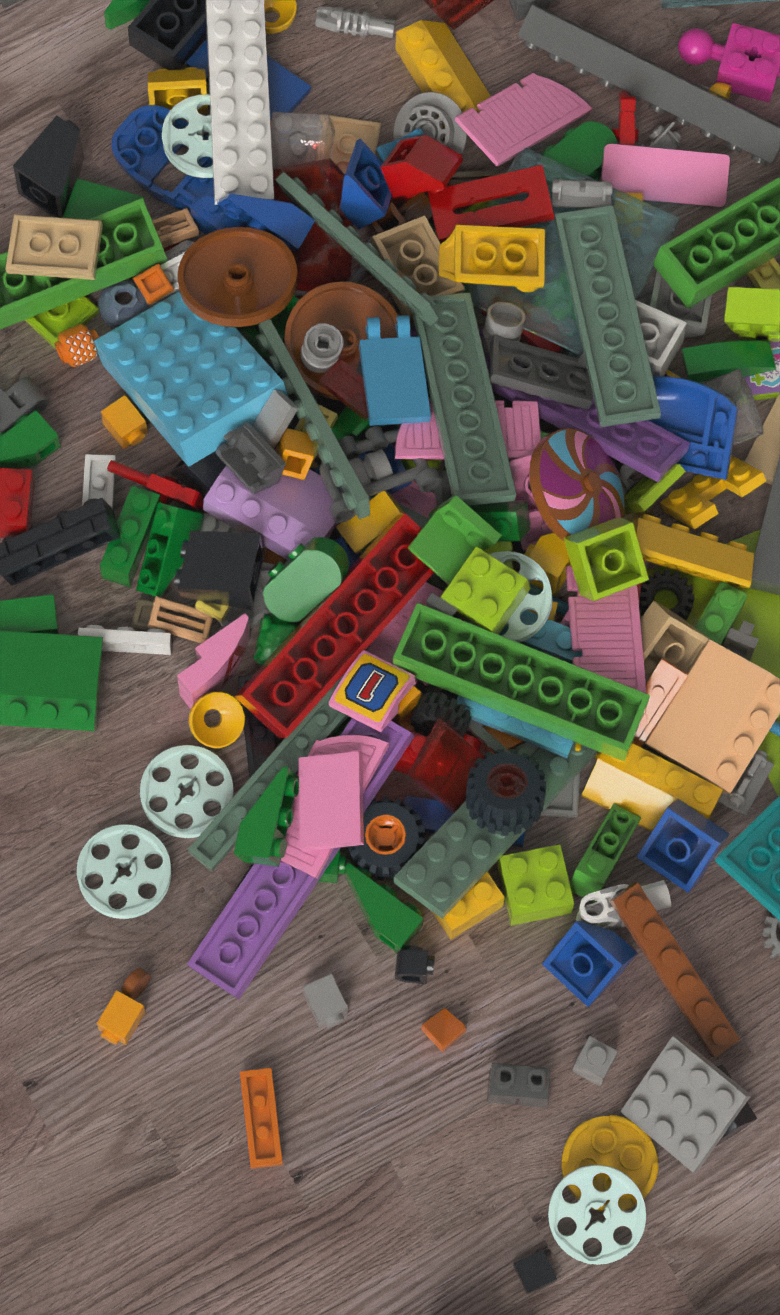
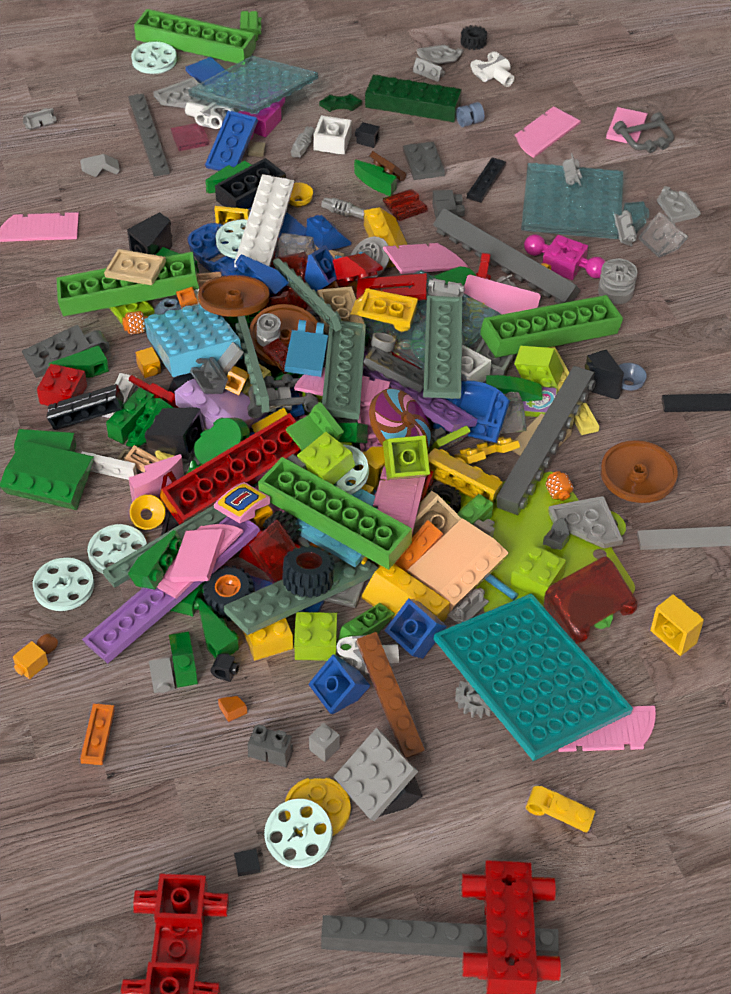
camera: 15 degrees right, 20 degrees down
(342, 91) = (325, 233): none -> blue slope
(346, 962) = (183, 659): none -> green slope

